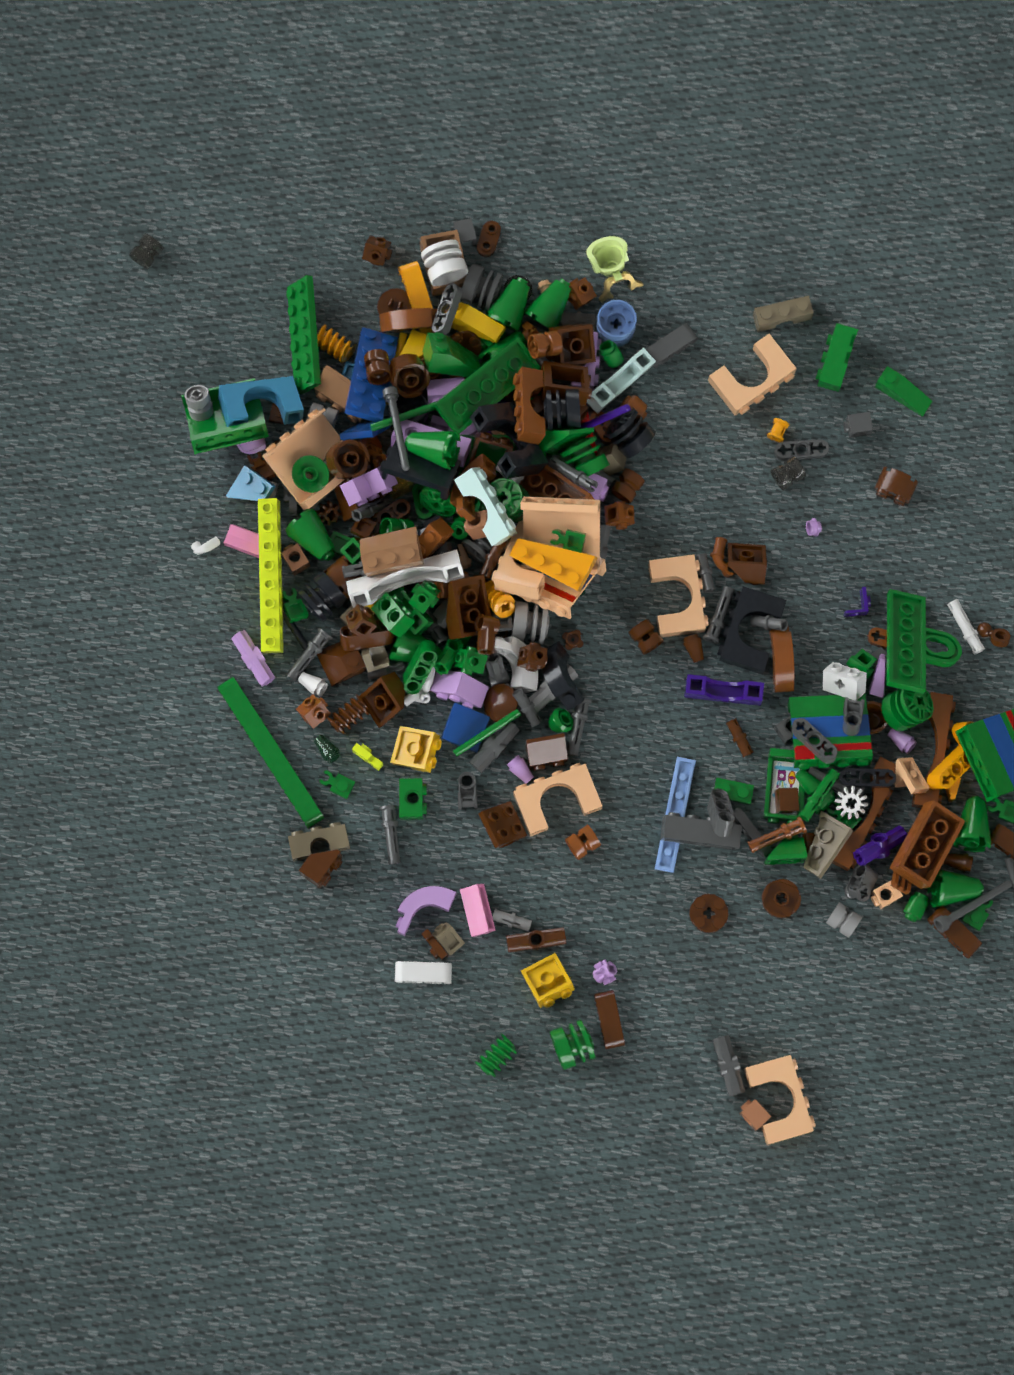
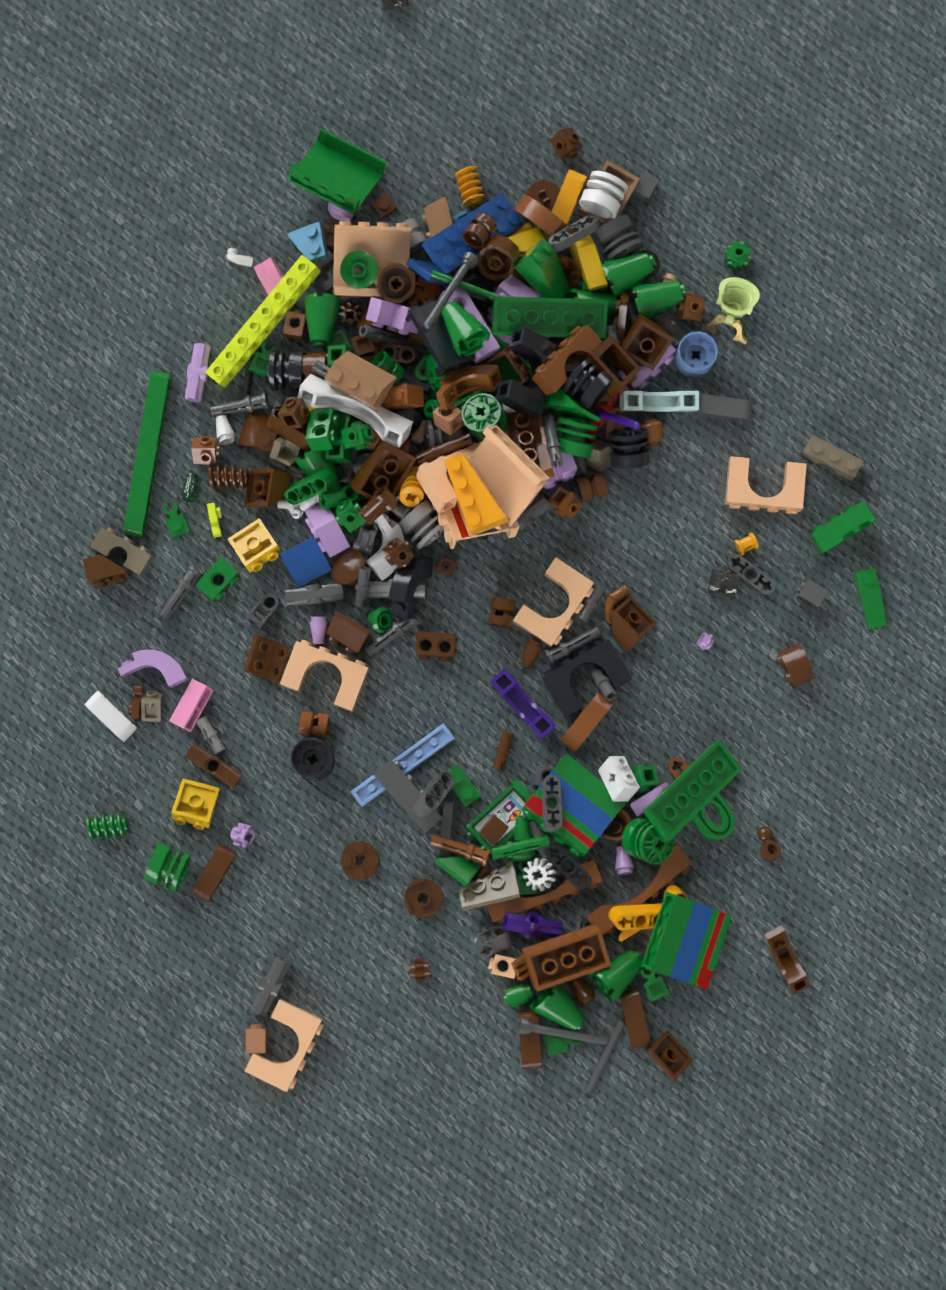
camera: 45 degrees right, 5 degrees up
(199, 403) = (327, 144): light grey wheel -> none
(278, 390) = (395, 186): dark azure arch -> none
(303, 334) = (452, 160): green plate -> none
(487, 732) = (317, 579): green bar -> none
(489, 238) = (661, 207): reddish brown plate -> none
(498, 525) = (457, 430): light aqua arch -> none
(545, 344) = (622, 323): dark orange wheel -> none
(571, 540) = (502, 490): green plate -> none
(579, 225) = (737, 261): none -> green brick
(606, 856) = (307, 749): none -> black wheel
(611, 354) = (671, 375): green brick -> none
(615, 700) = (436, 640): none -> reddish brown brick
(827, 953) = (419, 970): none -> reddish brown gear
(844, 920) = (454, 956): light grey wheel -> none
(852, 713) = (600, 808): dark grey piece -> none
(865, 602) = (691, 734): dark purple bracket -> none
(909, 776) = (602, 894): light nougat slope -> none
(963, 621) = (750, 826): white pin -> none

